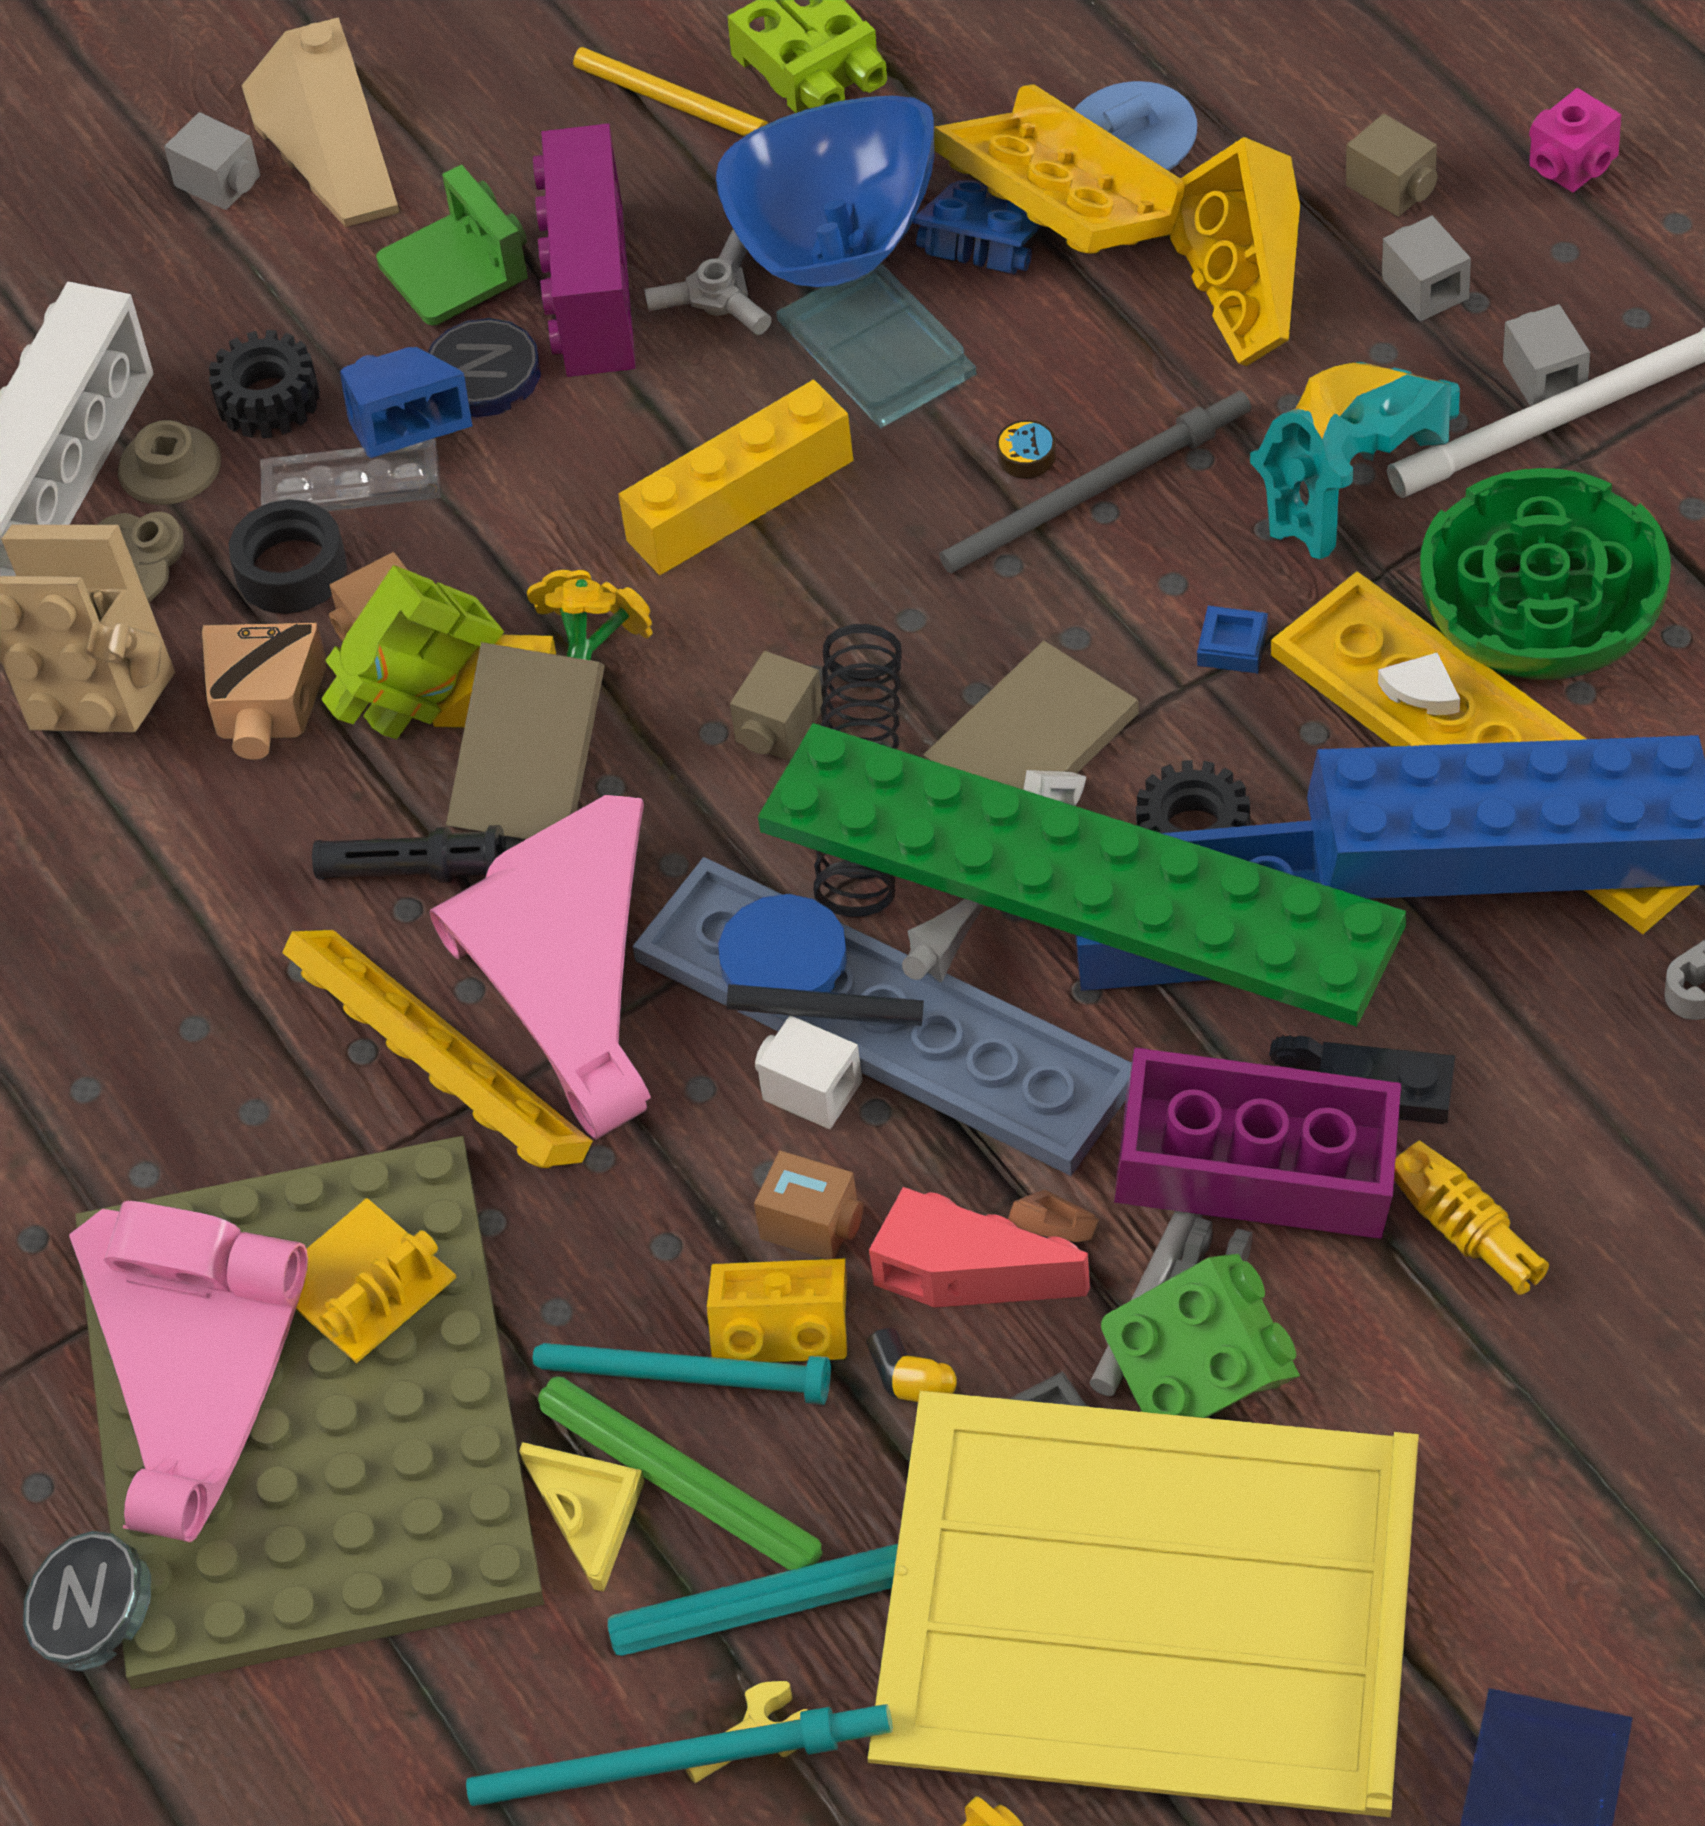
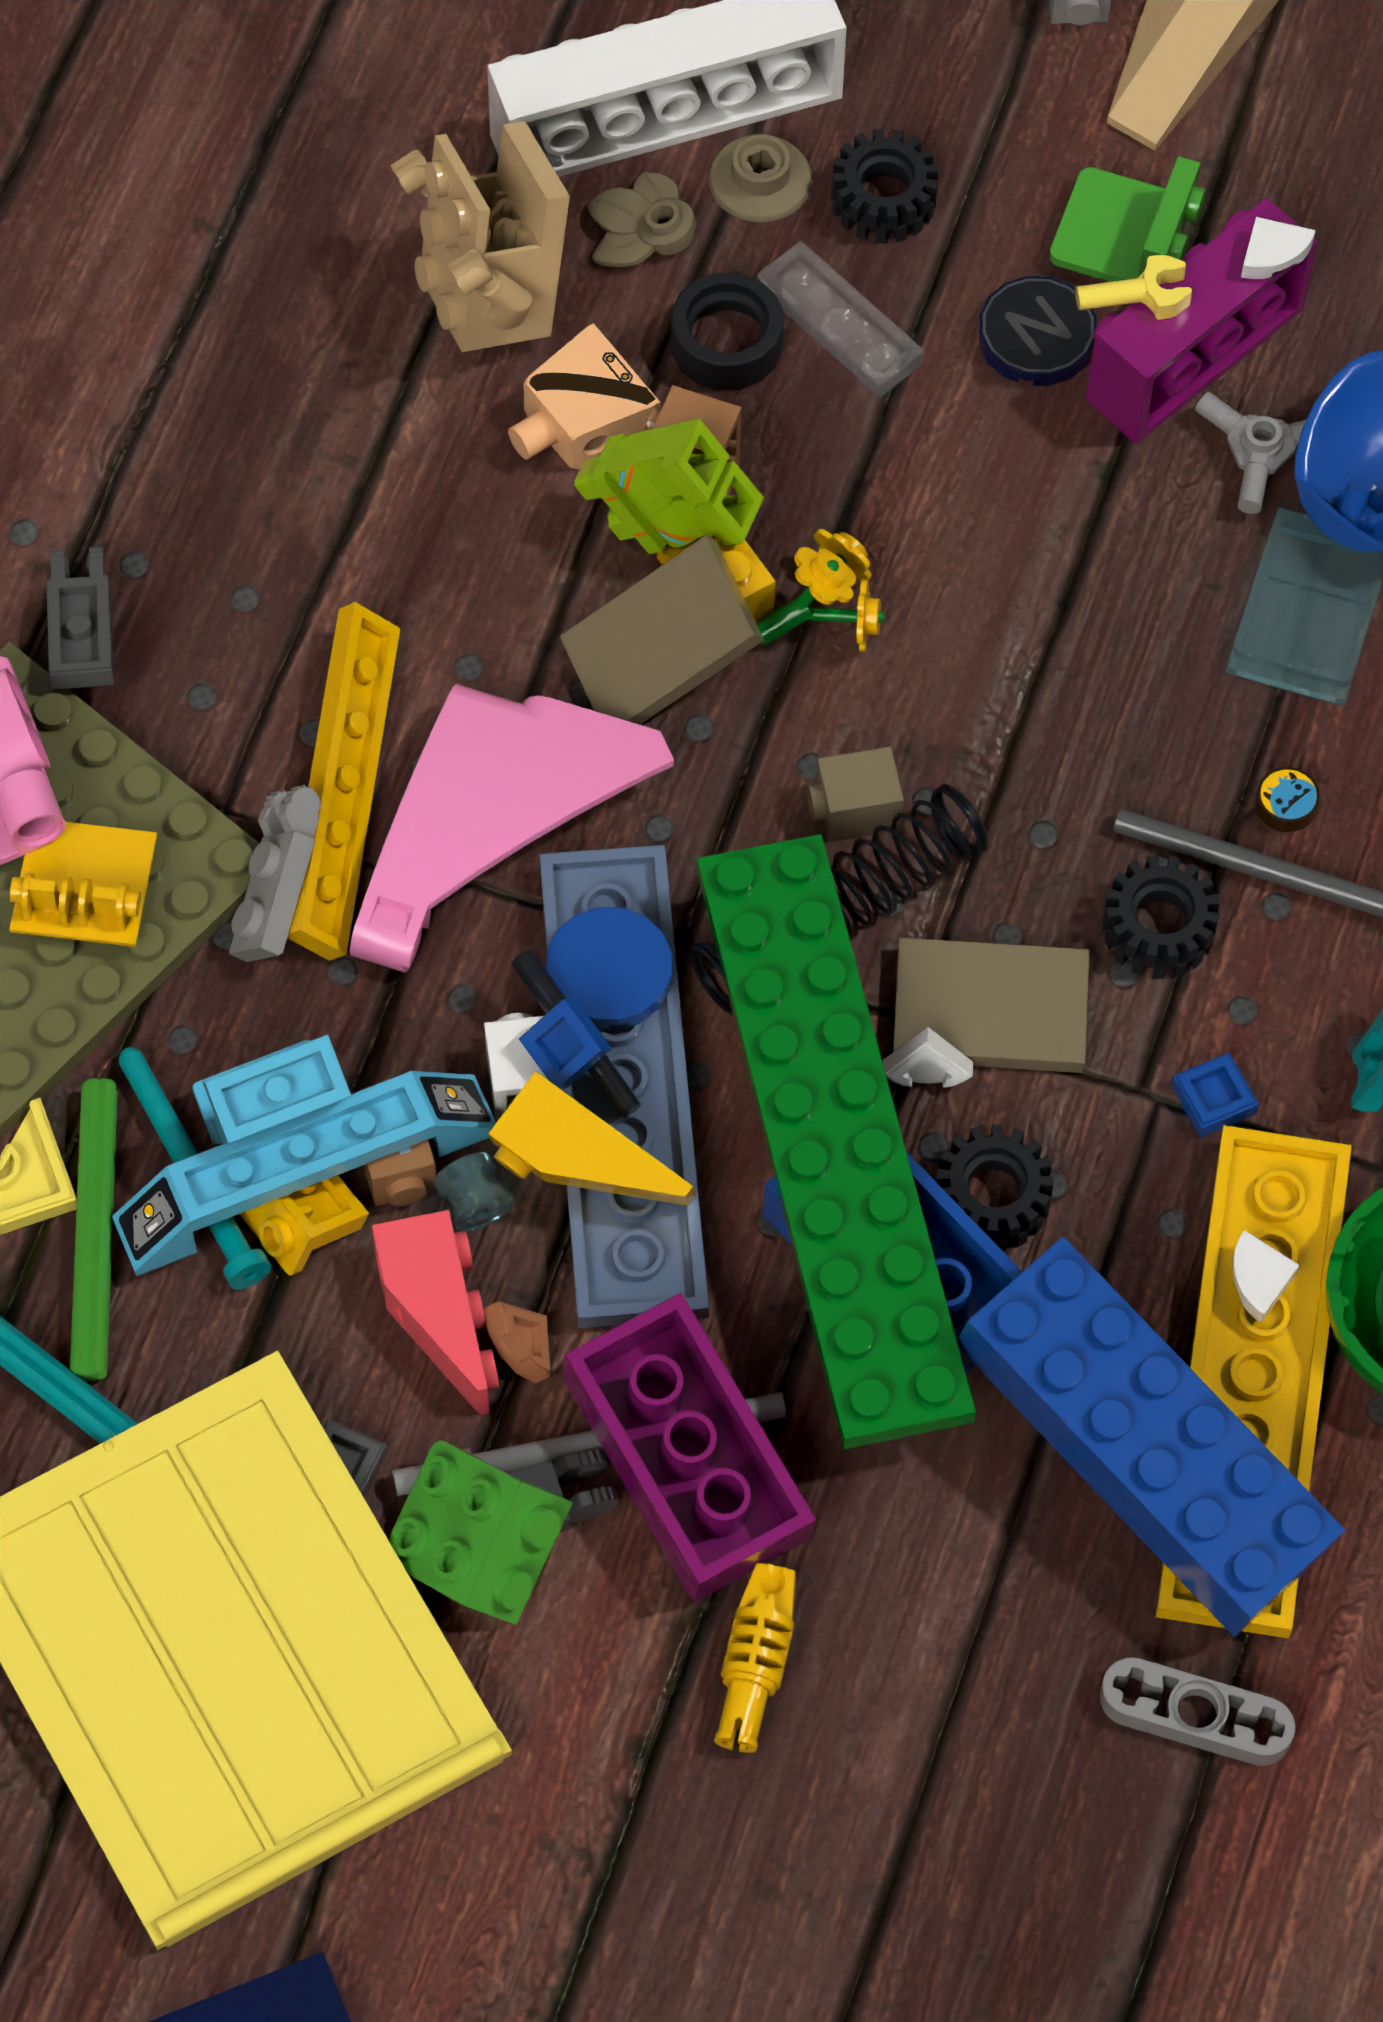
camera: 45 degrees right, 10 degrees up
(110, 1146) = (79, 623): none -> dark grey hinge
(403, 399) = (933, 296): blue torso -> none
(439, 854) = (523, 651): black pin -> none
(484, 1137) = (276, 873): none -> light grey hinge
(549, 240) = (1144, 289): none -> light yellow bar
(592, 146) = (1275, 248): none -> white tile
(691, 1250) = (270, 1090): none -> medium azure panel
(736, 477) = (1065, 600): yellow brick -> none
(757, 1282) = (297, 1154): none -> medium azure slope
(836, 1007) = (565, 1043): none -> blue plate
(890, 1168) = (473, 1191): none -> clear light blue wheel
(904, 1374) = (299, 1330): arm -> none
(923, 1060) = (573, 1147): none -> yellow slope
(938, 940) = (701, 1076): light grey piece -> none
(1061, 605) = (1165, 885): none -> black tyre
(1423, 1076) = (840, 1494): black hinge -> none

